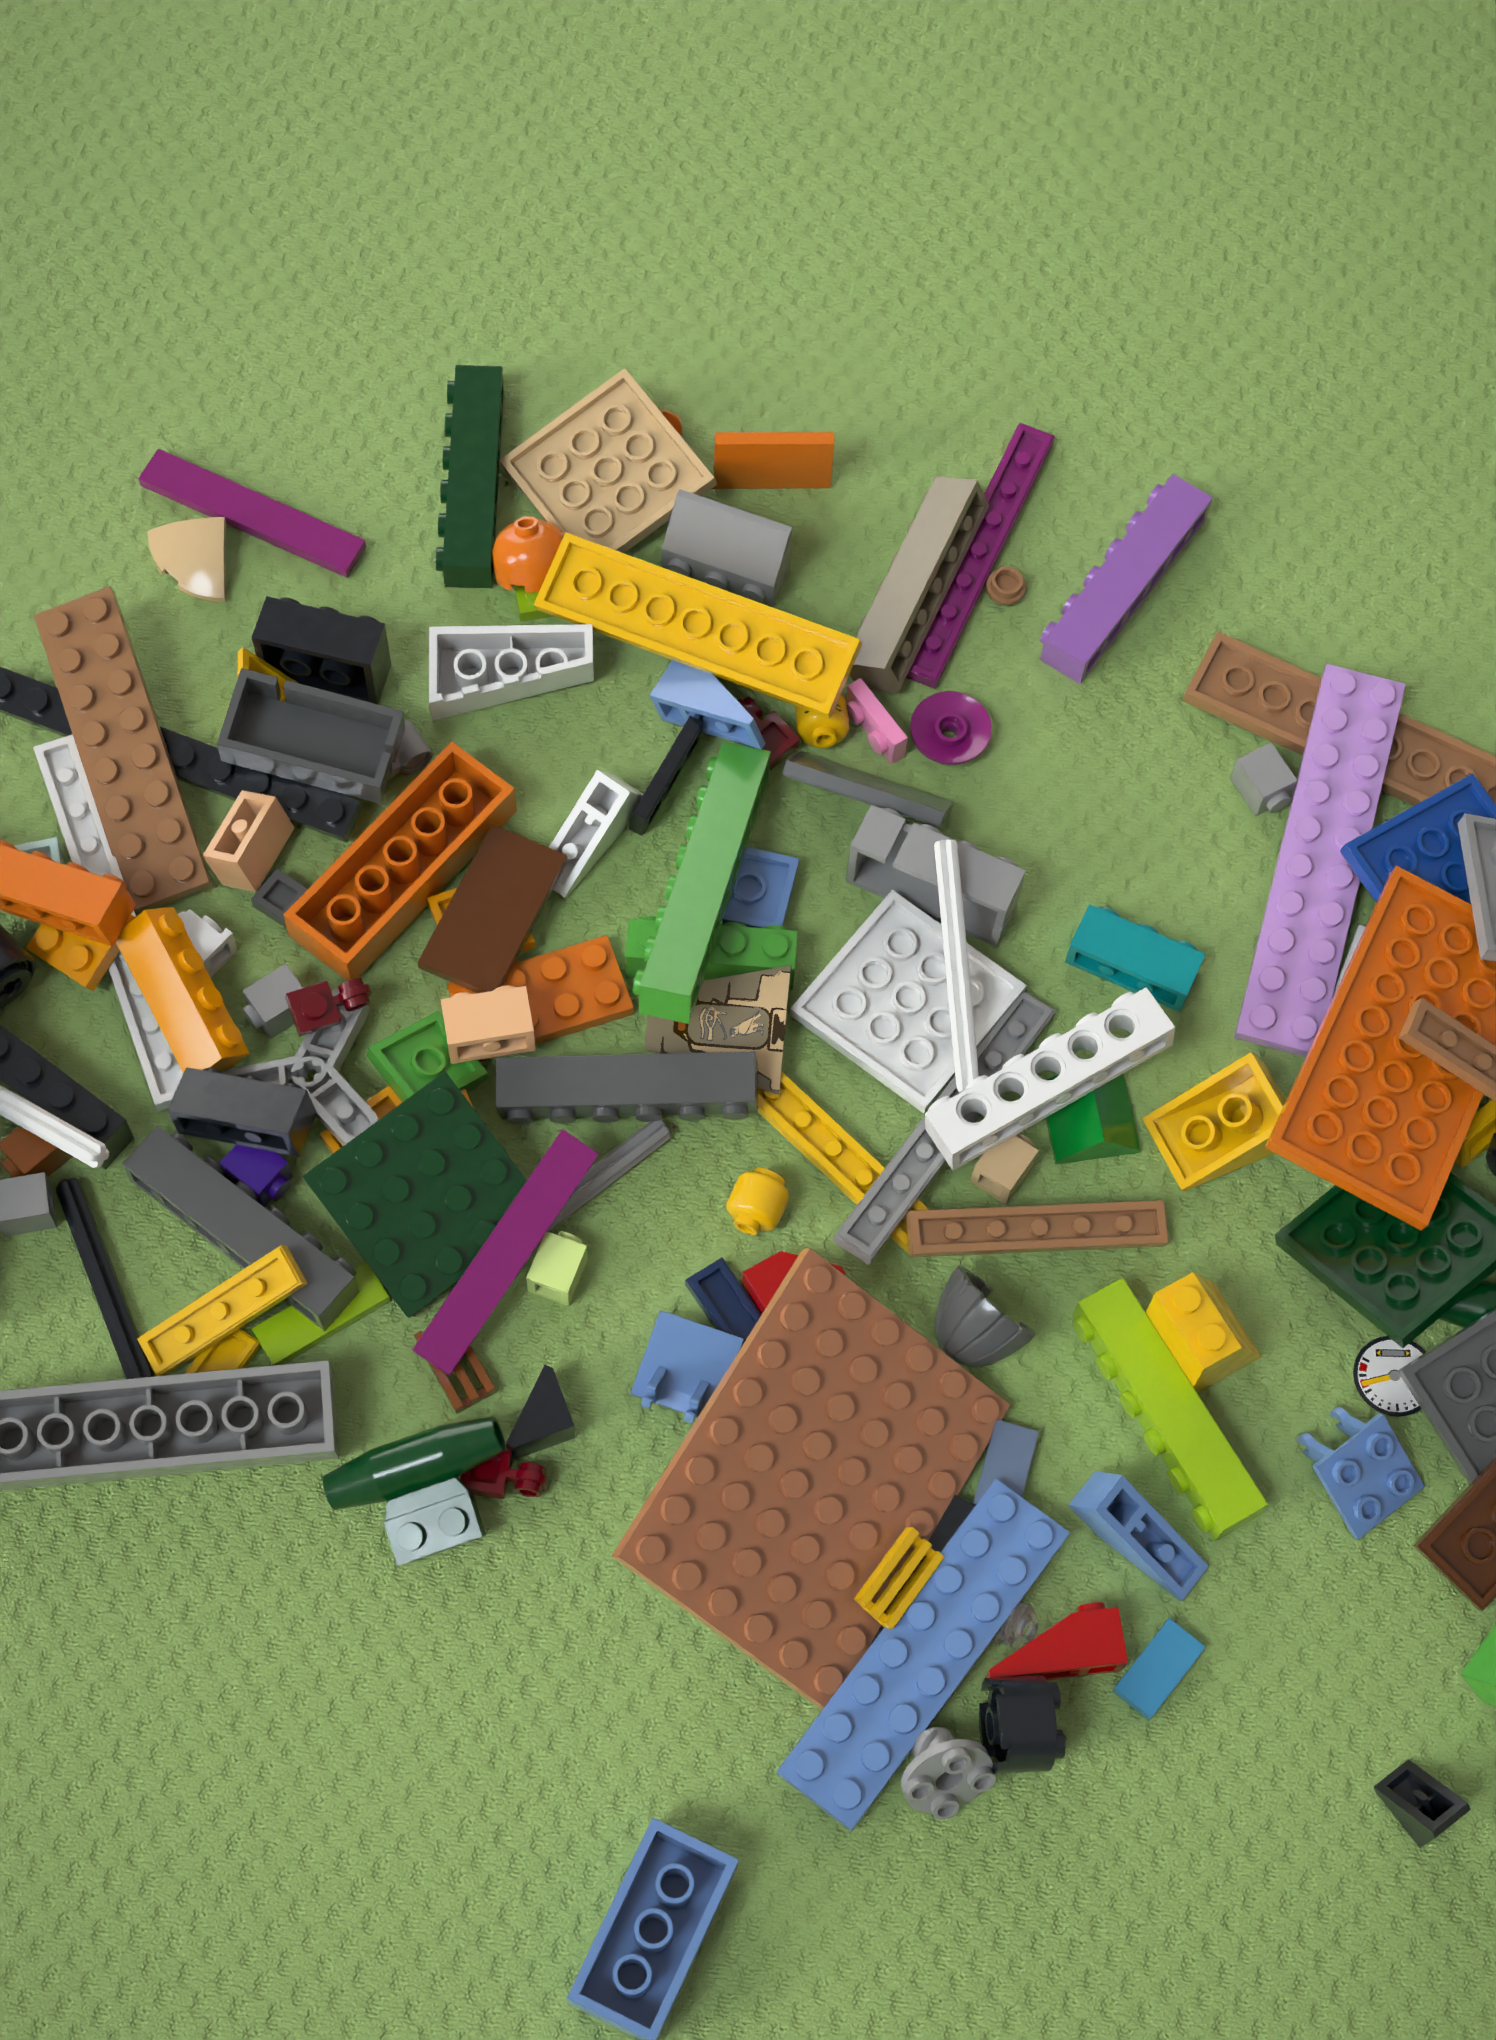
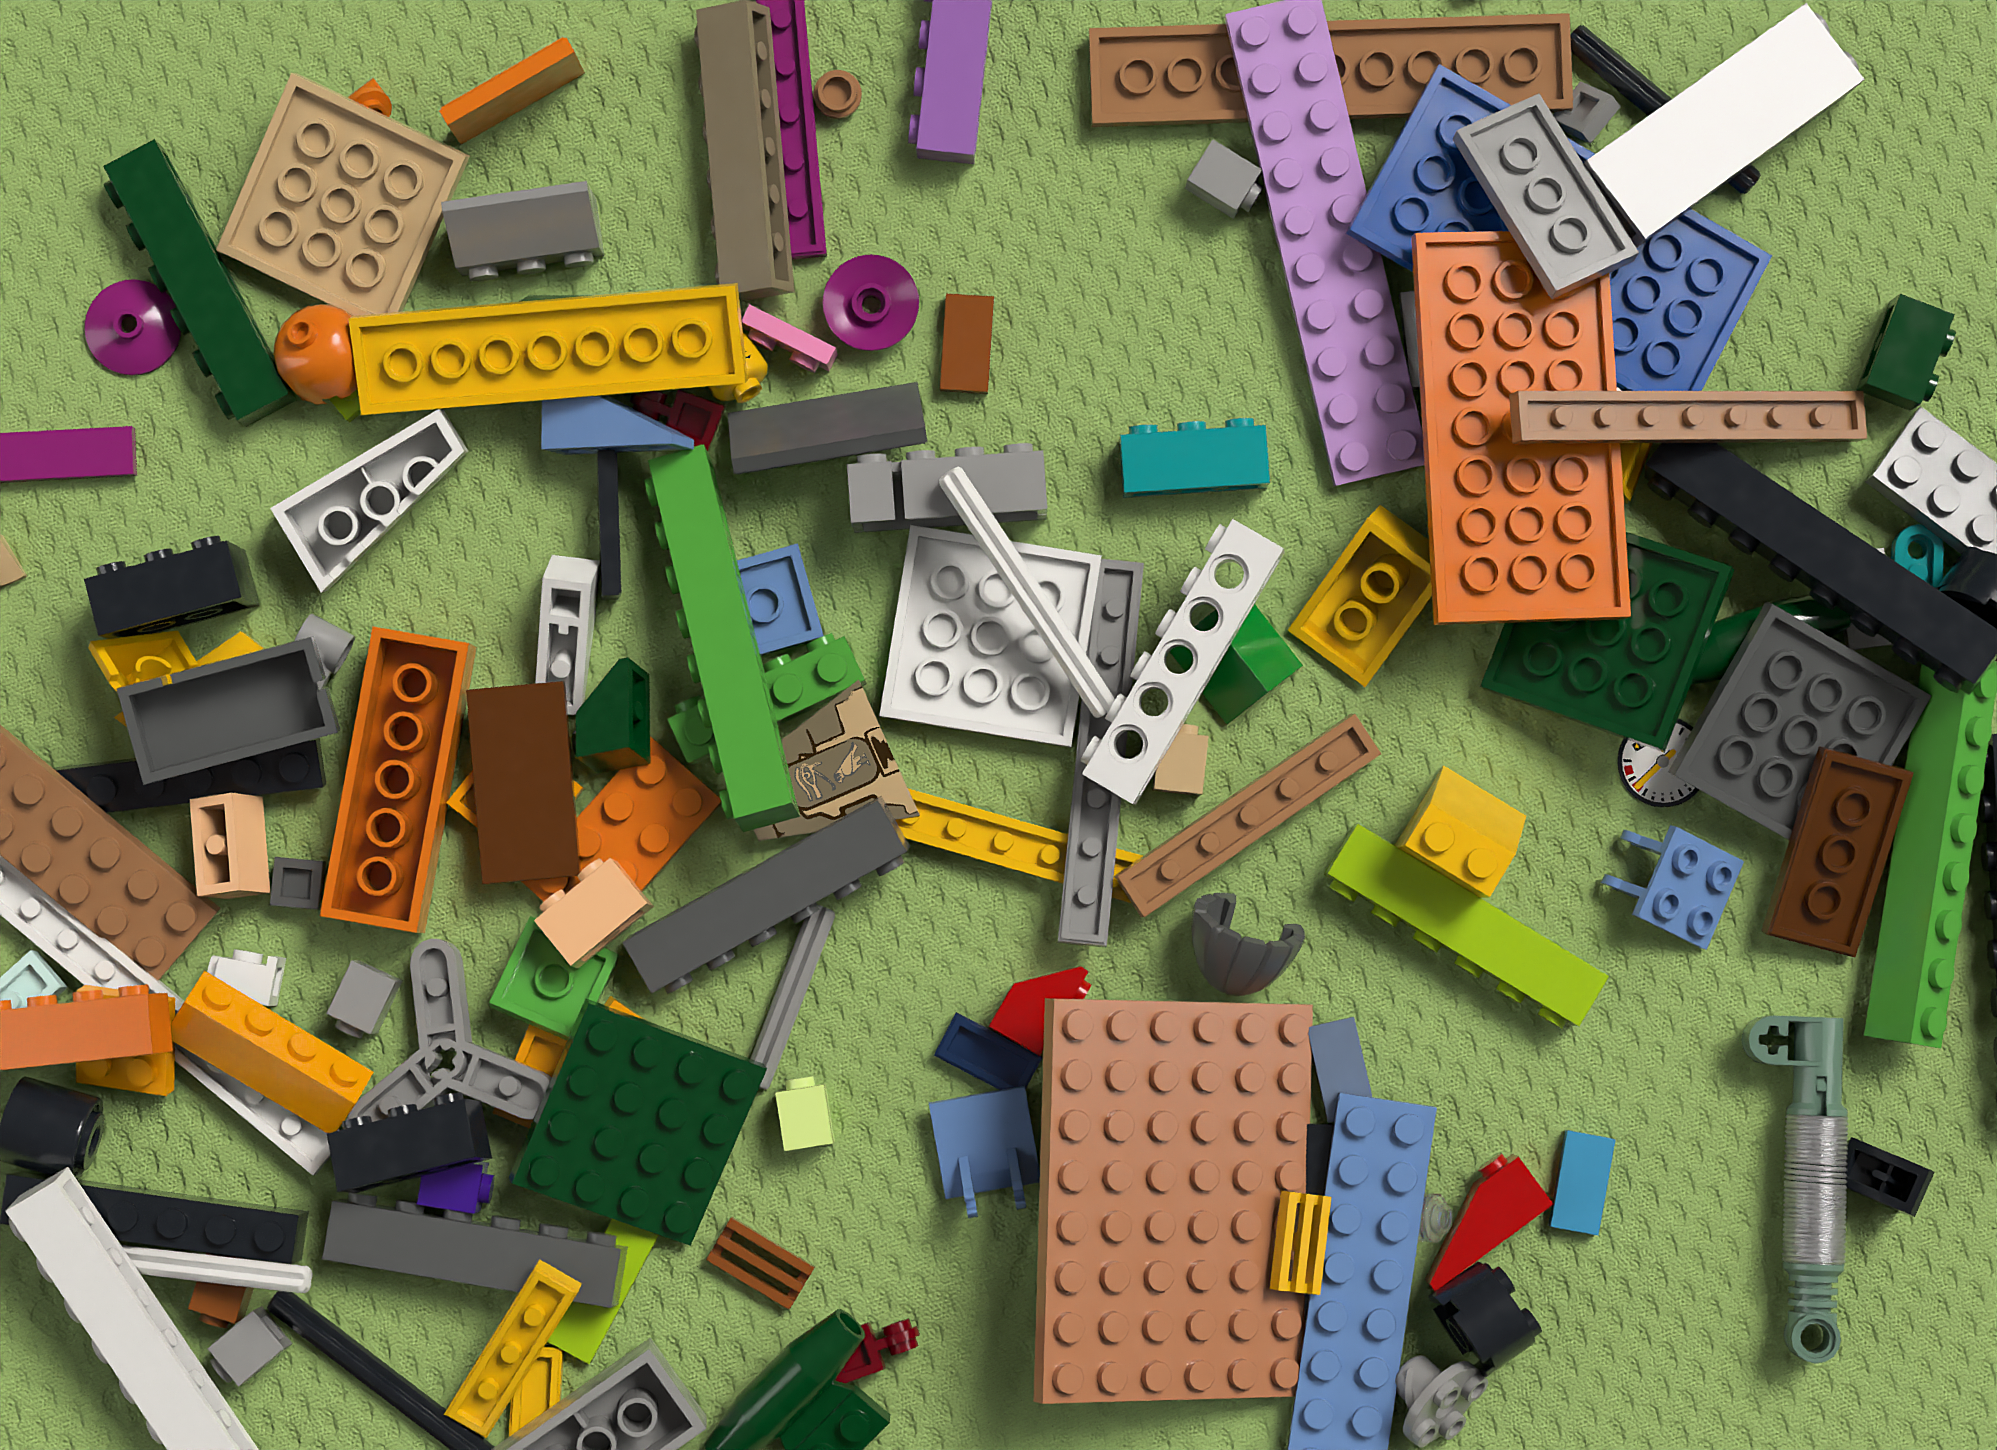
camera: 25 degrees left, 20 degrees up
(316, 1007) = (412, 992): dark red plate -> none
(409, 497) = (151, 341): none -> magenta dish
(505, 1252) = (750, 1137): magenta tile -> none
(543, 1420) = (878, 1271): black slope -> none
(588, 906) = (615, 720): none -> dark green slope
(757, 1201) = (960, 938): yellow head -> none
(1006, 795) = (967, 343): none -> dark orange tile
(1138, 1532) = (1499, 1066): medium blue slope -> none
(1365, 1764) = (1813, 1170): none -> piece

